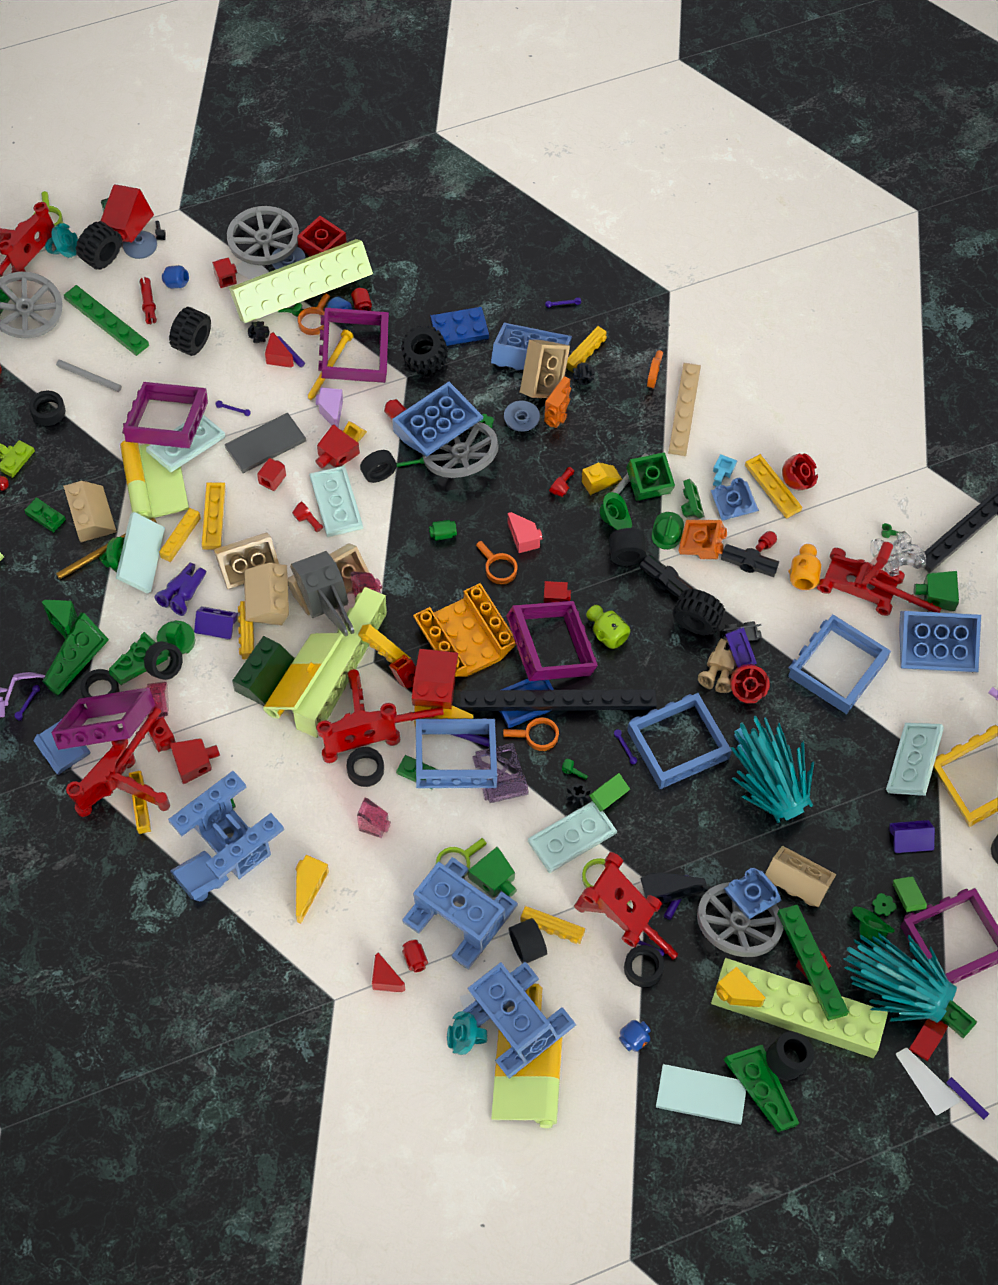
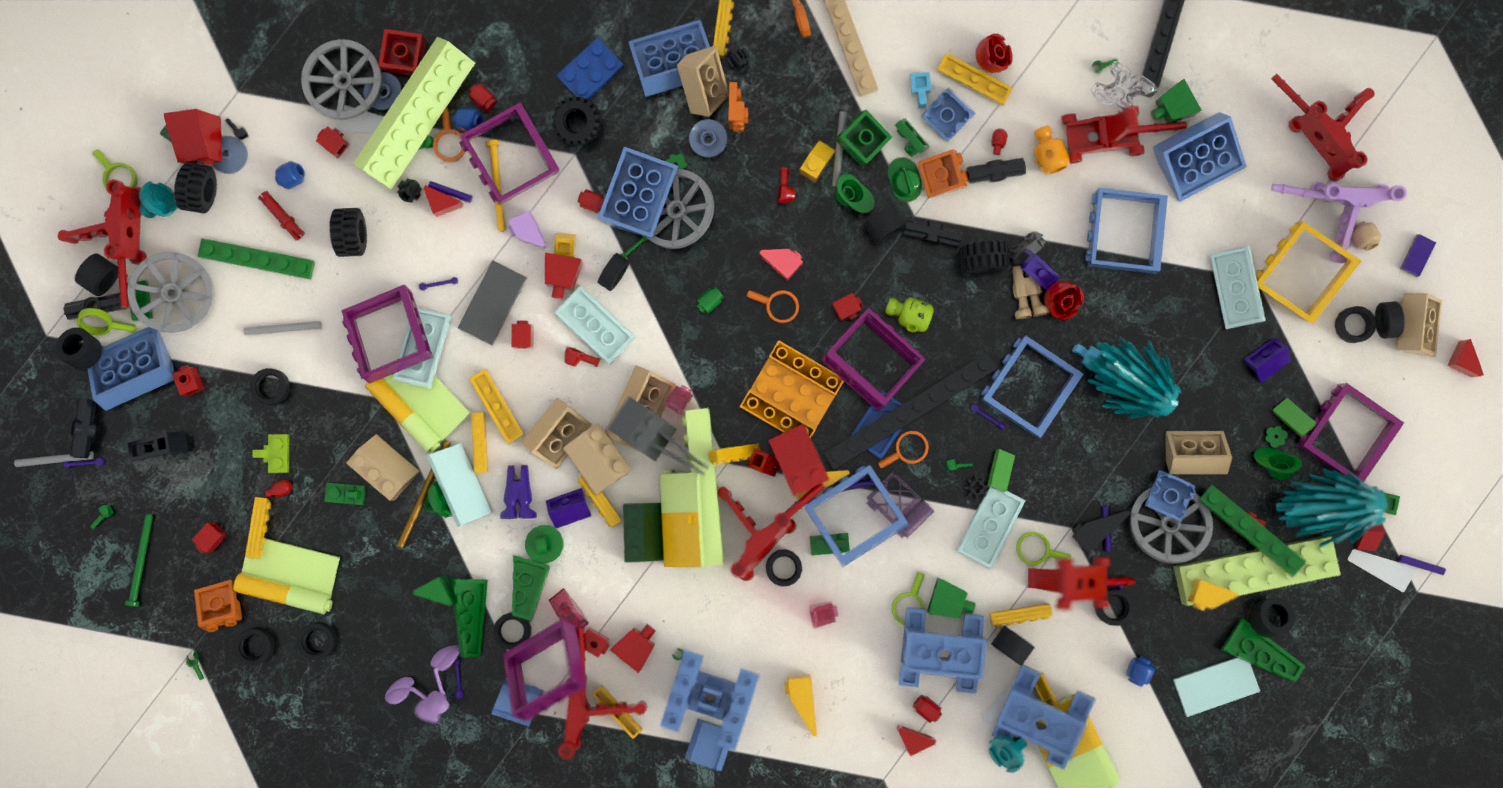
camera: 25 degrees left, 25 degrees up
(175, 660) = (542, 573): black tyre -> none

